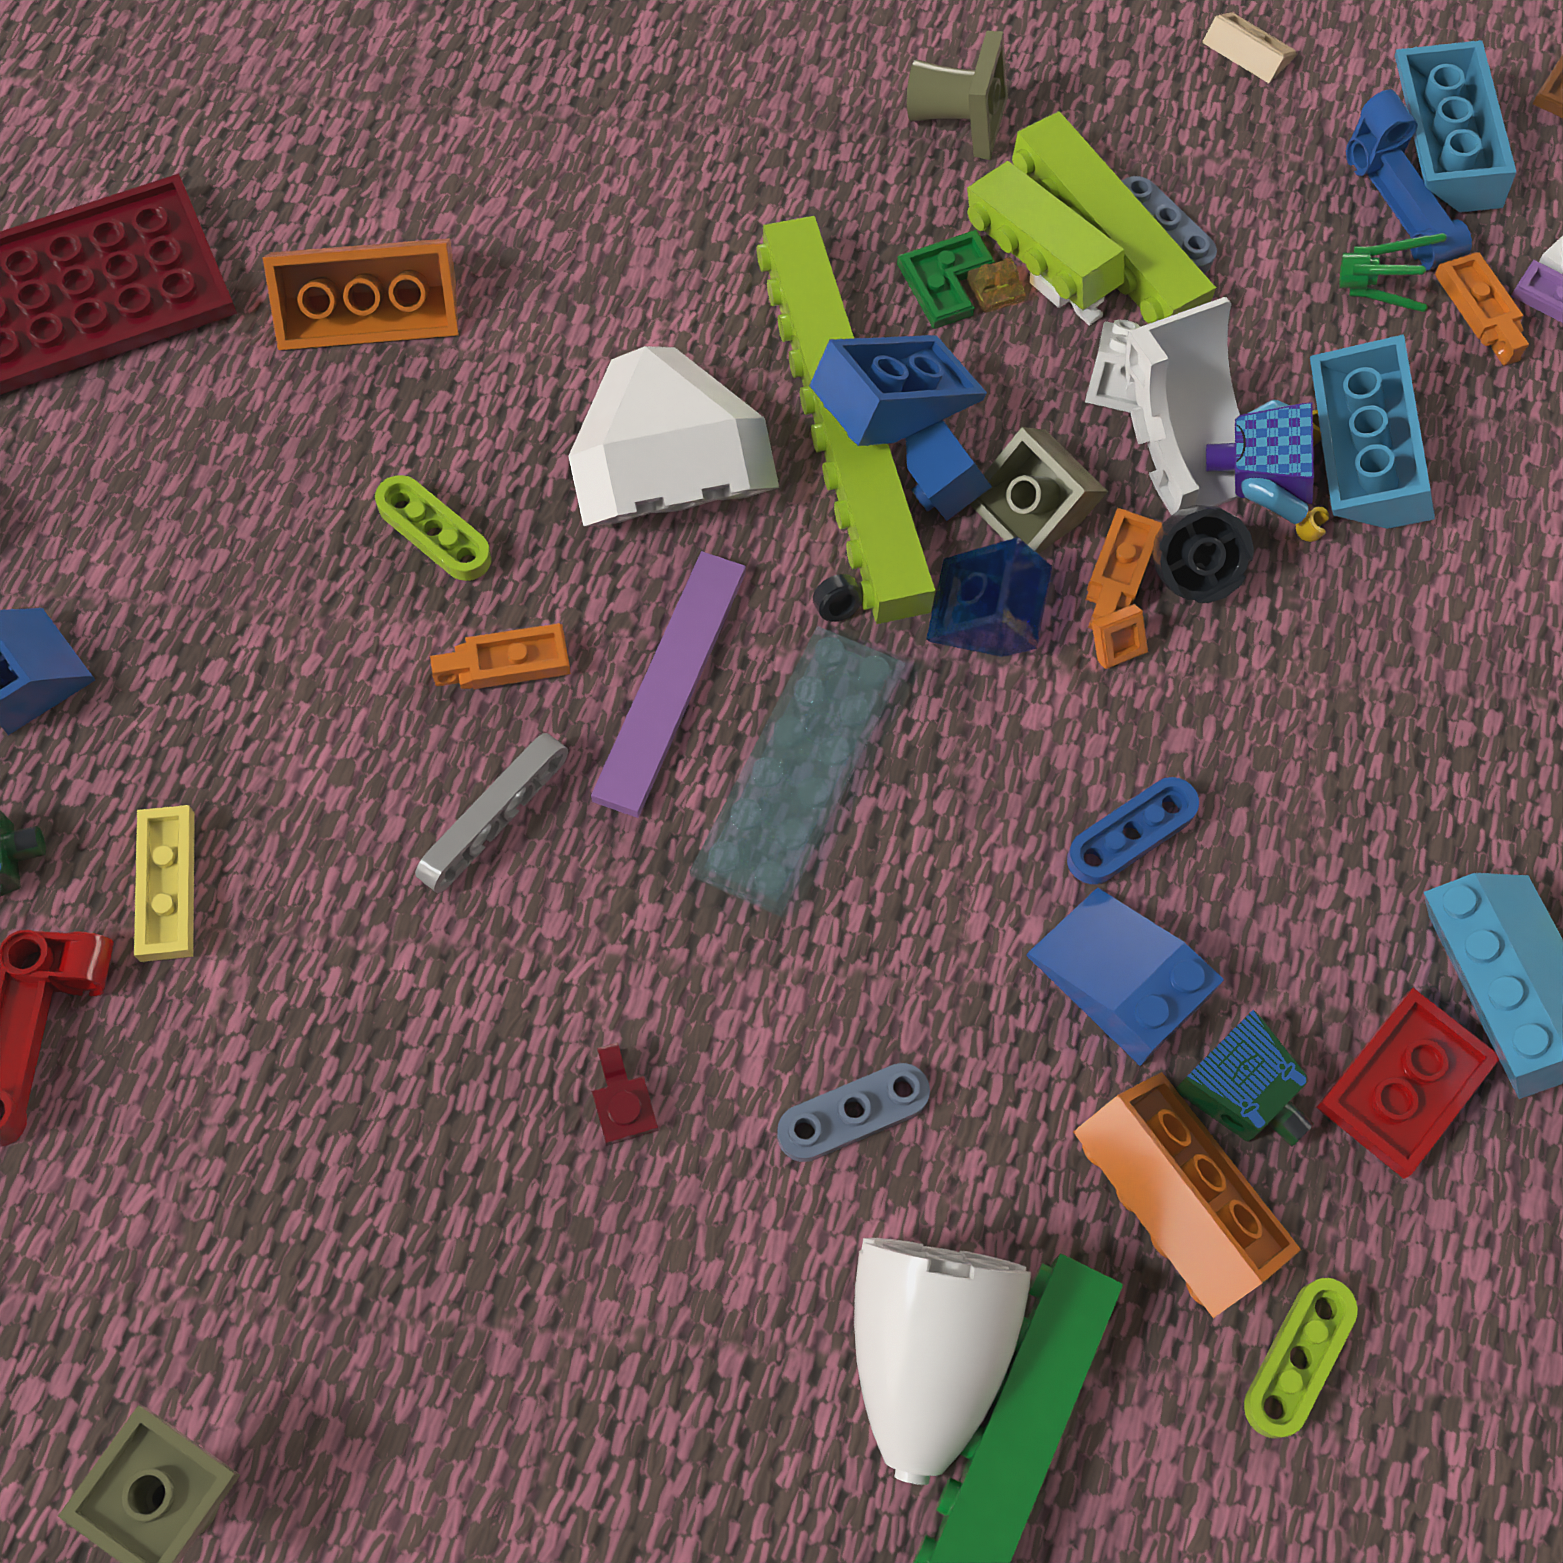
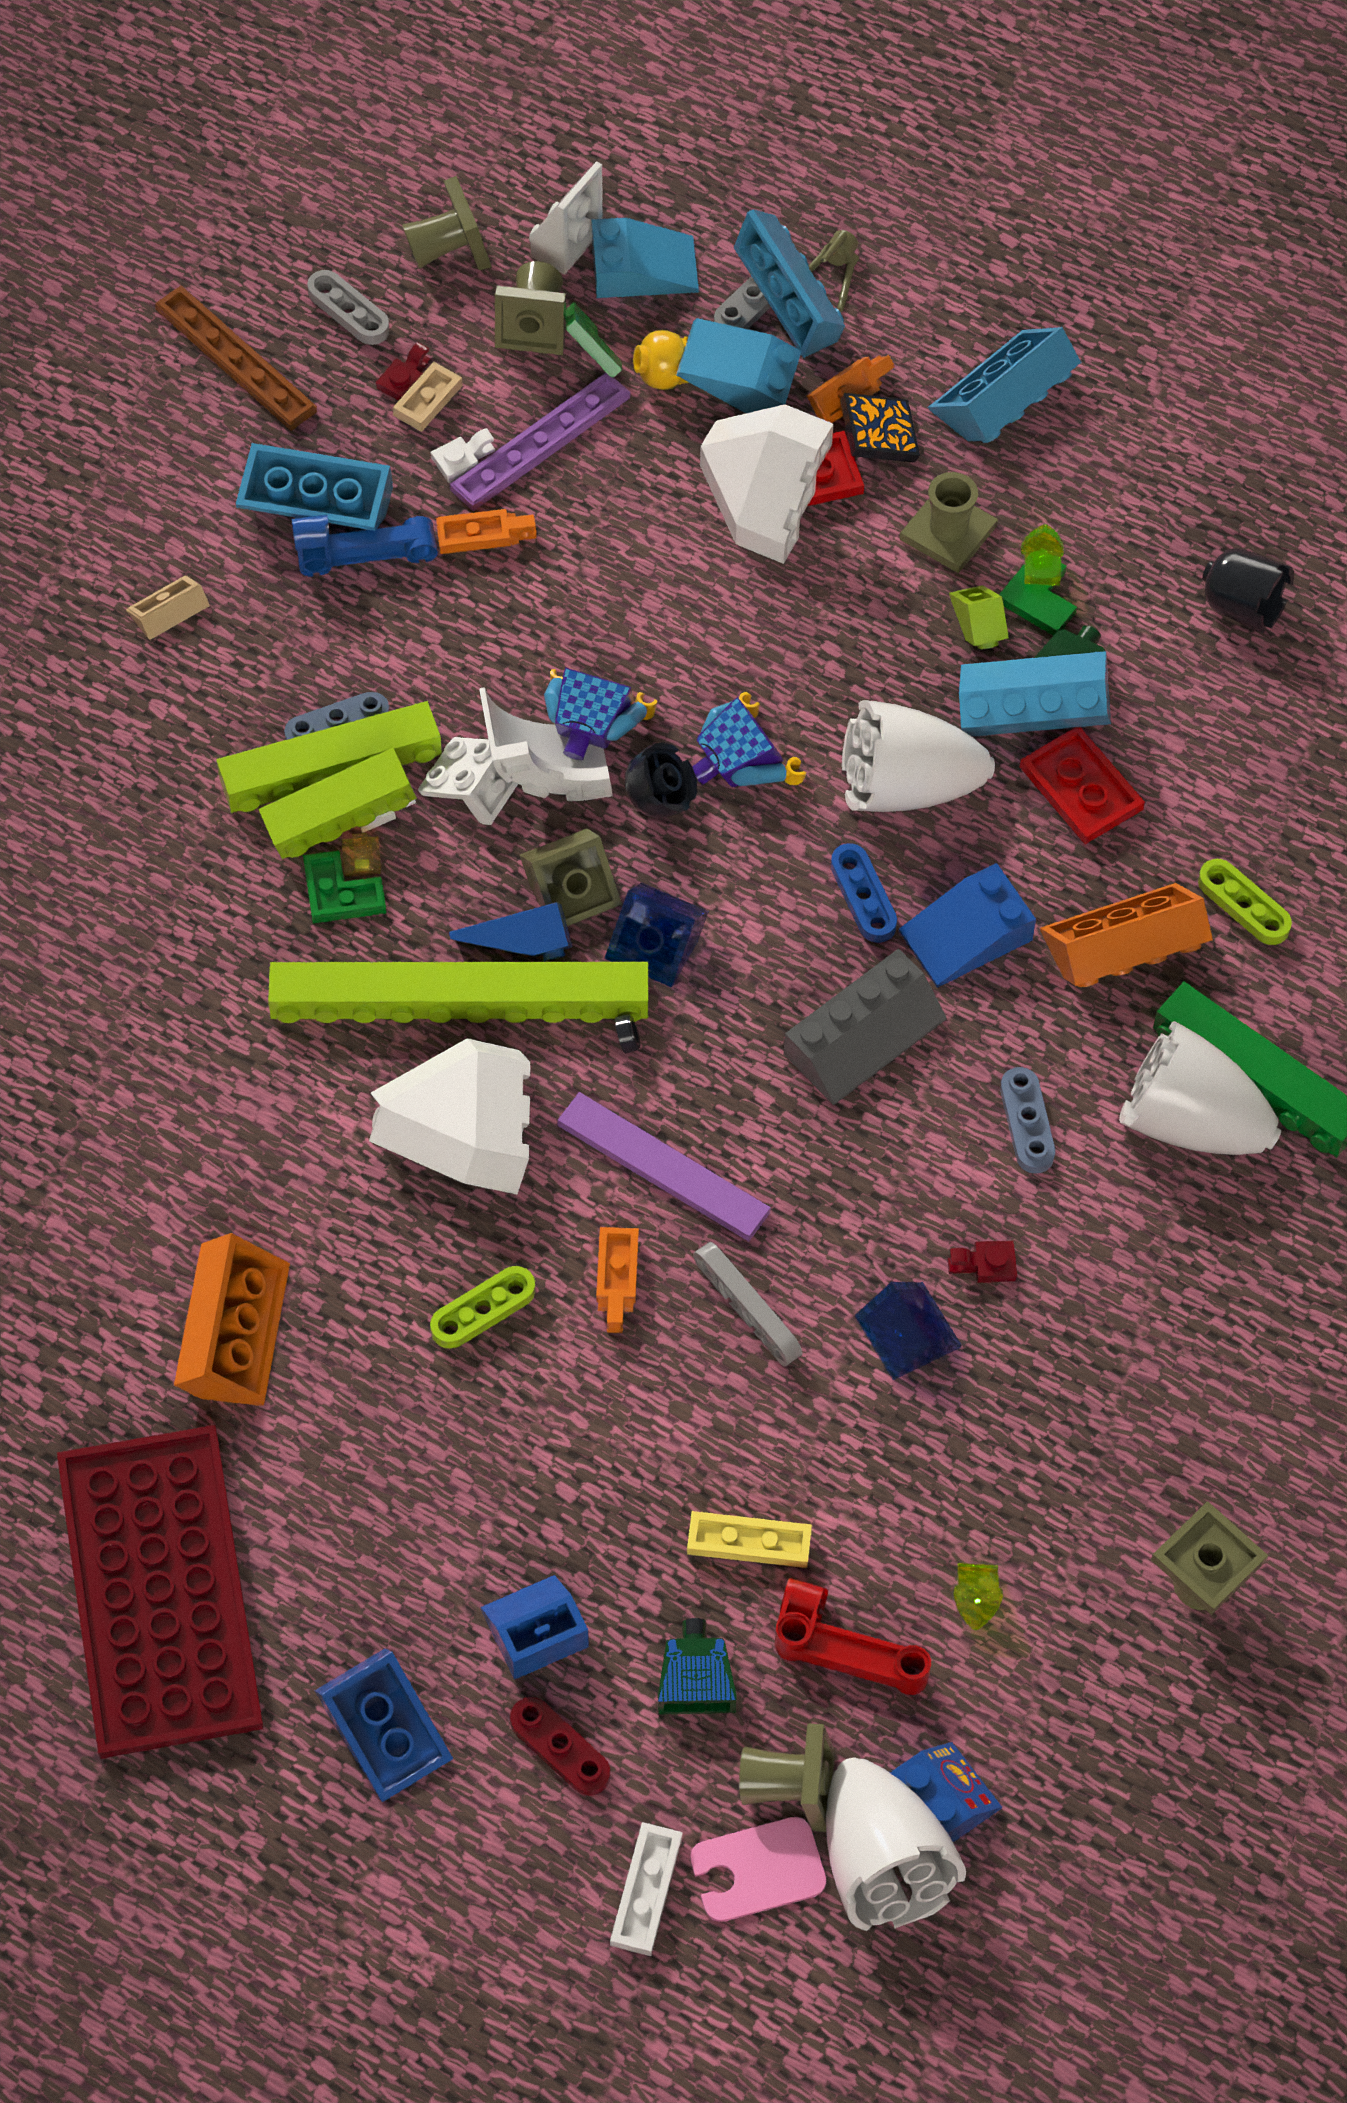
camera: 75 degrees left, 5 degrees down
(121, 1179) = (977, 1593): none -> clear neon green tile
(502, 1019) = (906, 1328): none -> clear blue slope
(798, 771) = (758, 1095): clear light blue plate -> none
(892, 386) = (471, 939): blue slope -> none
(929, 870) = (864, 1027): none -> dark grey slope
(964, 93) = (171, 826): olive plant -> none
(1120, 636) = (709, 856): orange tile -> none
(1121, 563) = (648, 840): orange hinge -> none
(1249, 1083) = (1062, 875): dark green torso -> none
(1290, 635) = (741, 748): none -> torso
(1350, 843) = (909, 759): none -> white cylinder
(1361, 270) = (433, 600): green plant -> none
(1372, 434) = (585, 638): dark azure slope -> none

